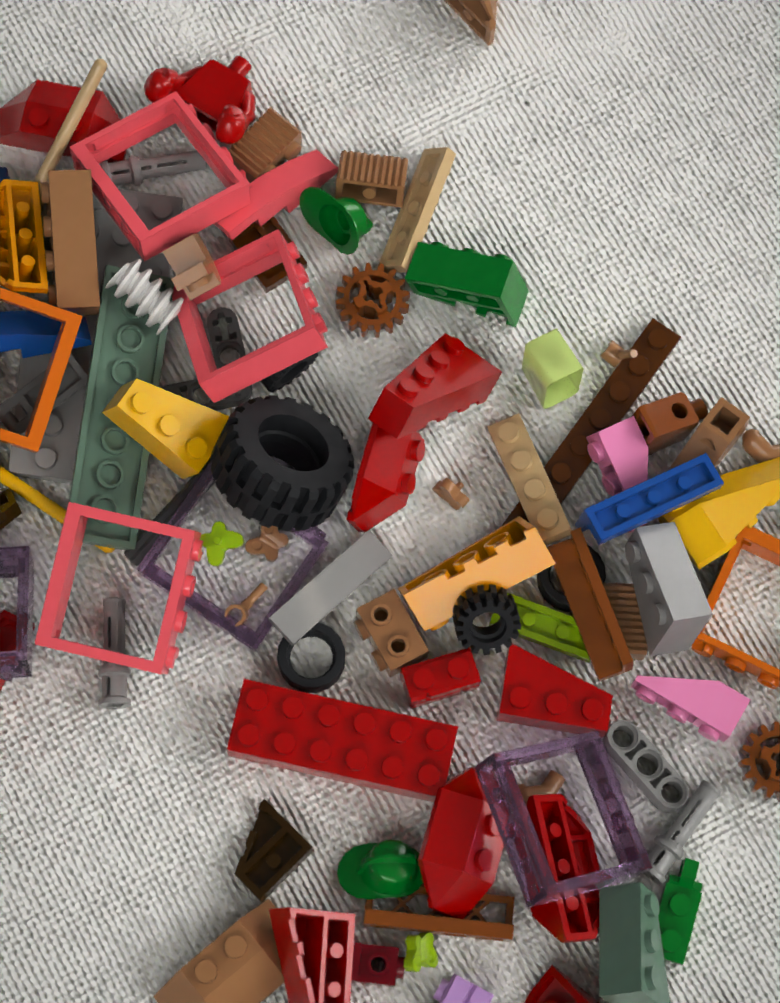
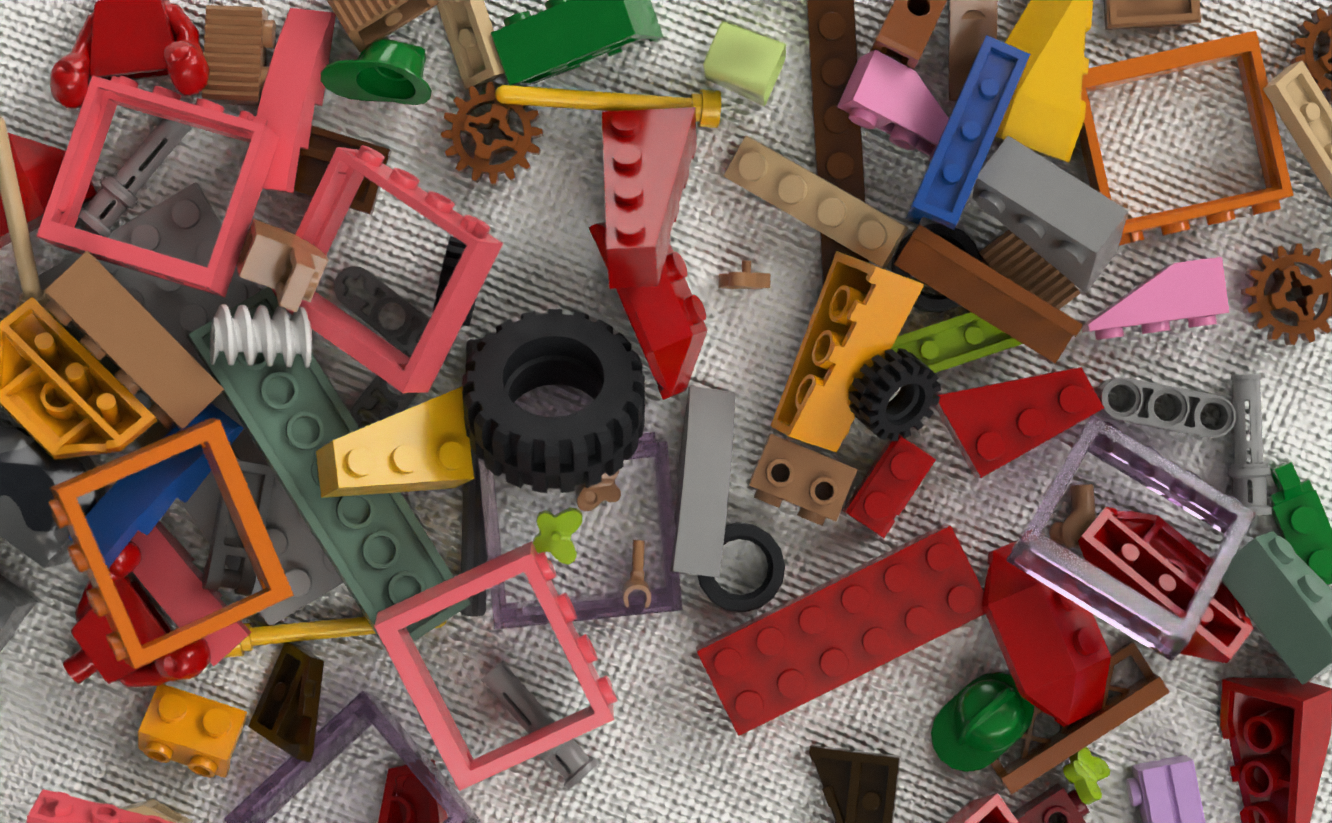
camera: 30 degrees left, 15 degrees up
(508, 379) = (706, 102): none -> yellow piece

